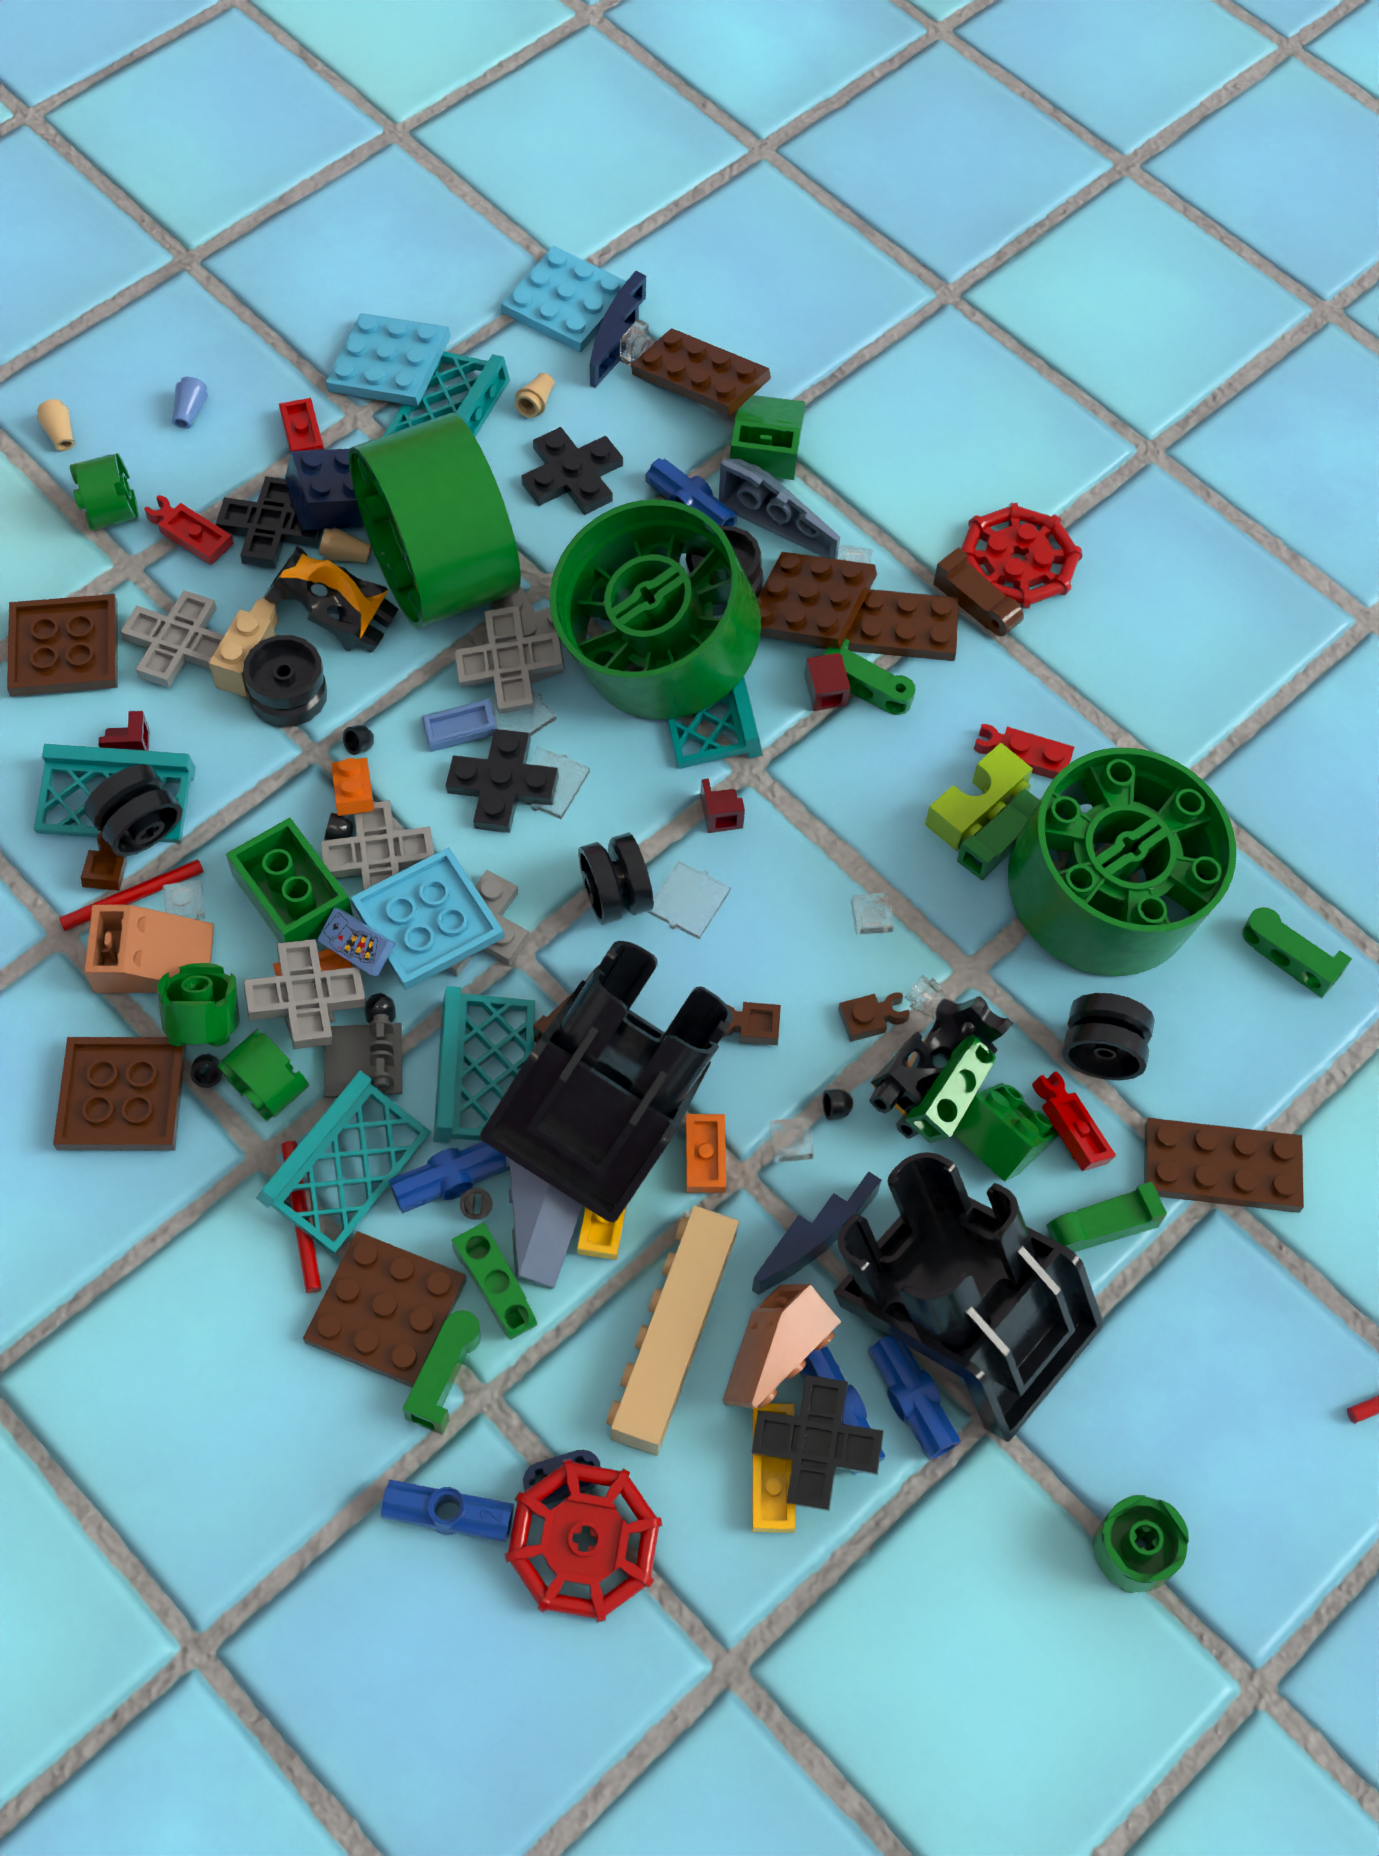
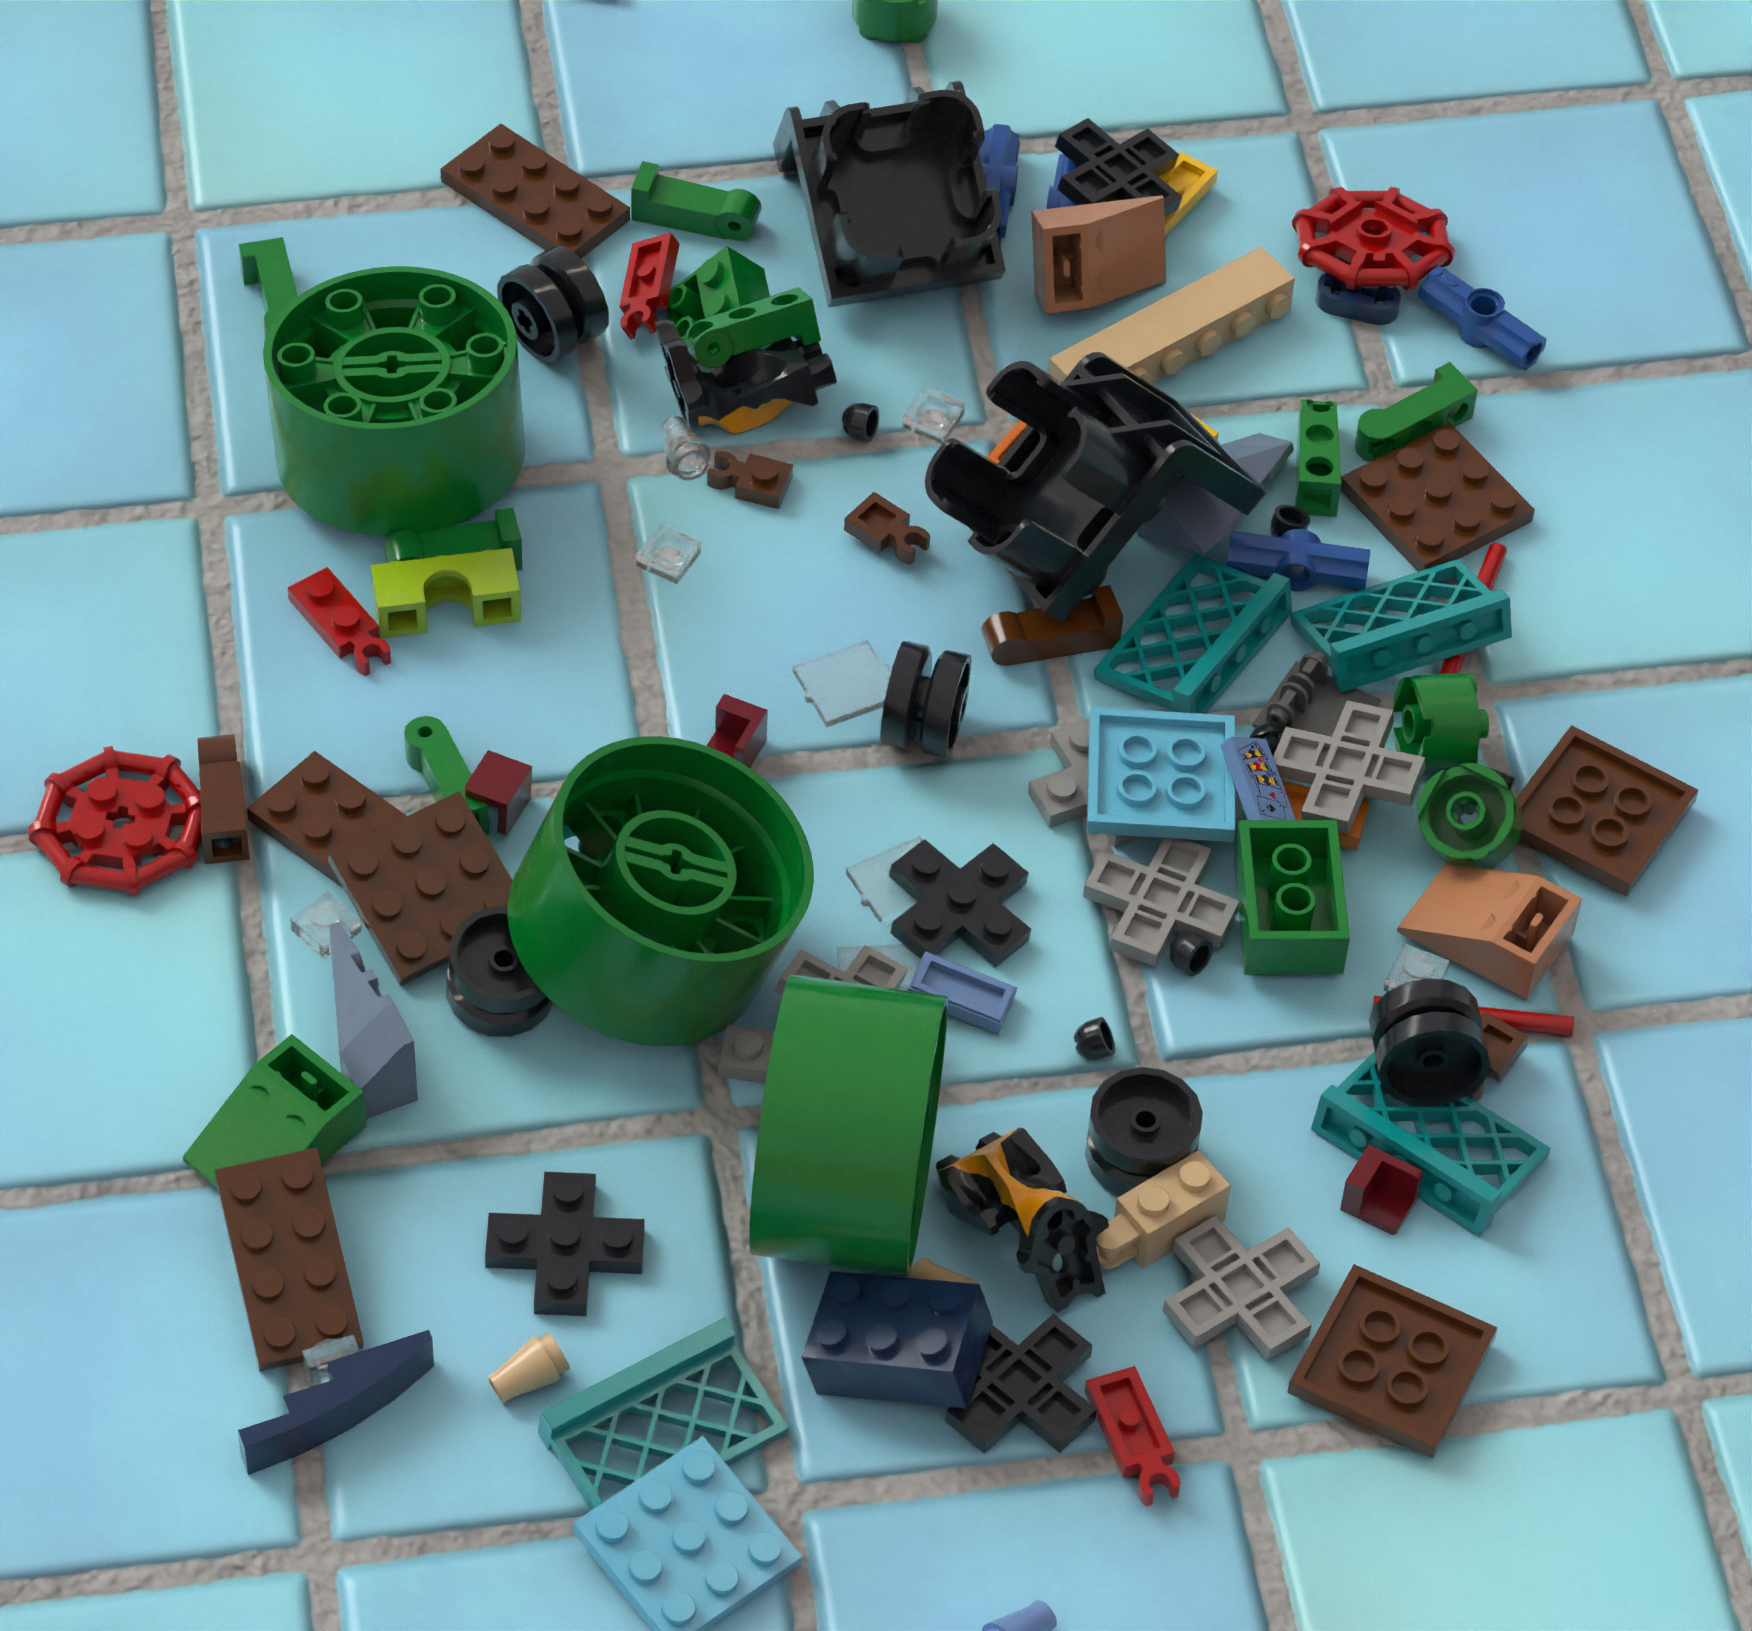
camera: 145 degrees left, 10 degrees down
(104, 491) = (1224, 1522): green brick -> none
(301, 425) = (884, 1502): red plate -> none
(352, 786) = (1142, 978): orange plate -> none
(563, 298) = (356, 1511): medium azure plate -> none
(689, 491) = (452, 1106): blue piece -> none
(809, 1240) = (992, 329): dark blue slope -> none

